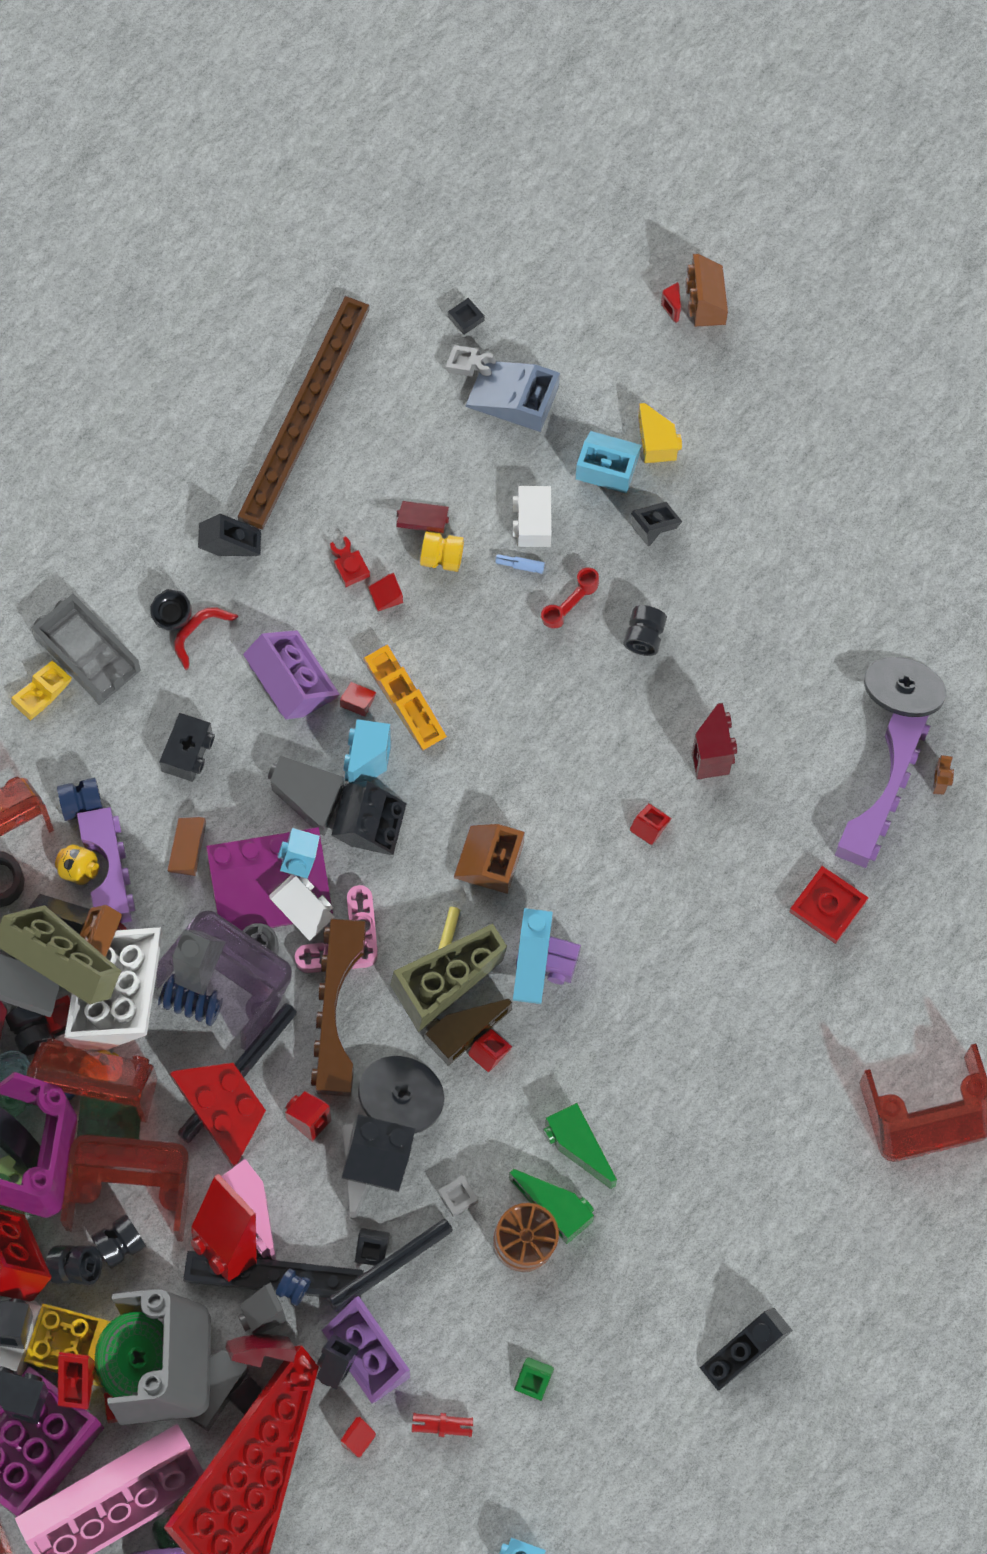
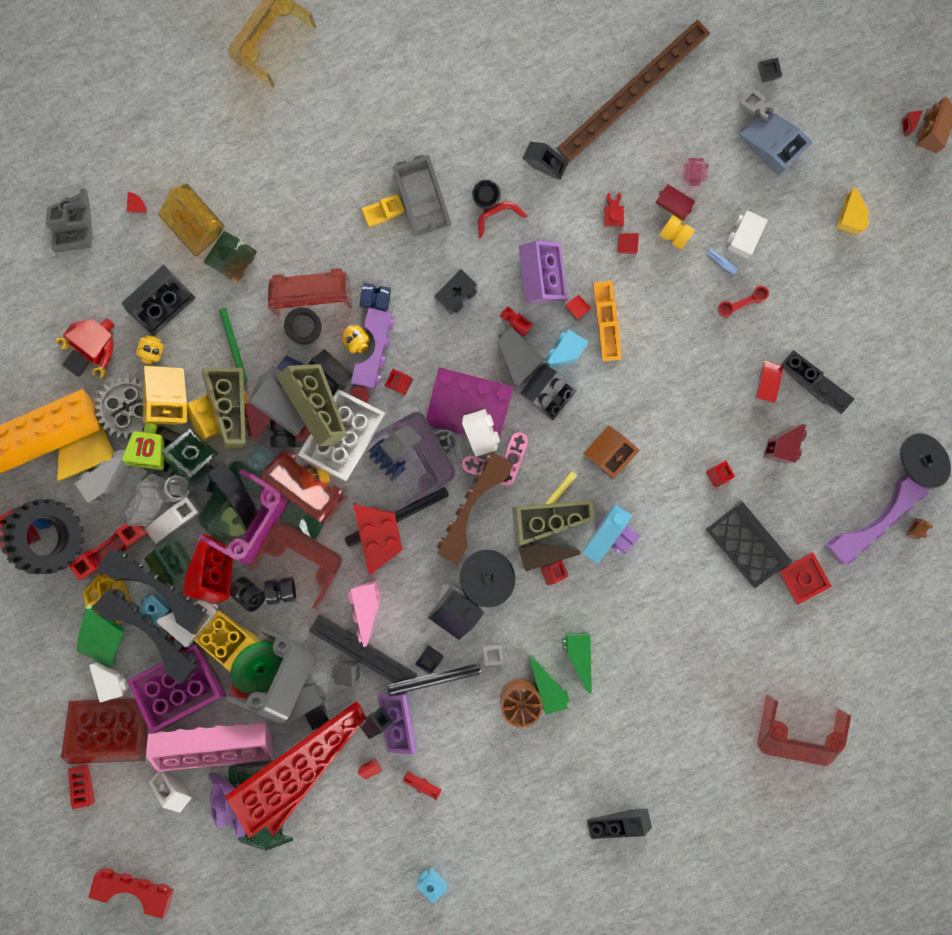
camera: 25 degrees right, 20 degrees up
(75, 1380) = (216, 670): red slope -> none
(101, 927) = (348, 394): dark orange slope -> none
(160, 895) = (398, 382): none -> red slope
(187, 845) = (428, 357): dark orange slope -> none
(225, 1230) = (341, 621): red slope -> none
(253, 1348) = (334, 697): dark red slope -> none
(287, 748) = (517, 322): none -> red plate
(293, 1287) = (369, 669): dark blue wheel -> none
(298, 853) = (492, 403): medium azure brick -> none
(308, 1114) = (425, 565): red slope -> none
(430, 470) = (695, 171): none -> clear pink head
(534, 1378) = (488, 781): green slope -> none
(607, 461) = (813, 217): medium azure slope -> none
(645, 628) = (781, 344): black wheel -> none
(654, 520) = (822, 274): black slope -> none
(655, 681) = (769, 382): none -> red slope
(715, 656) = (816, 383): none -> black slope
(743, 872) = (763, 536): none -> black fence

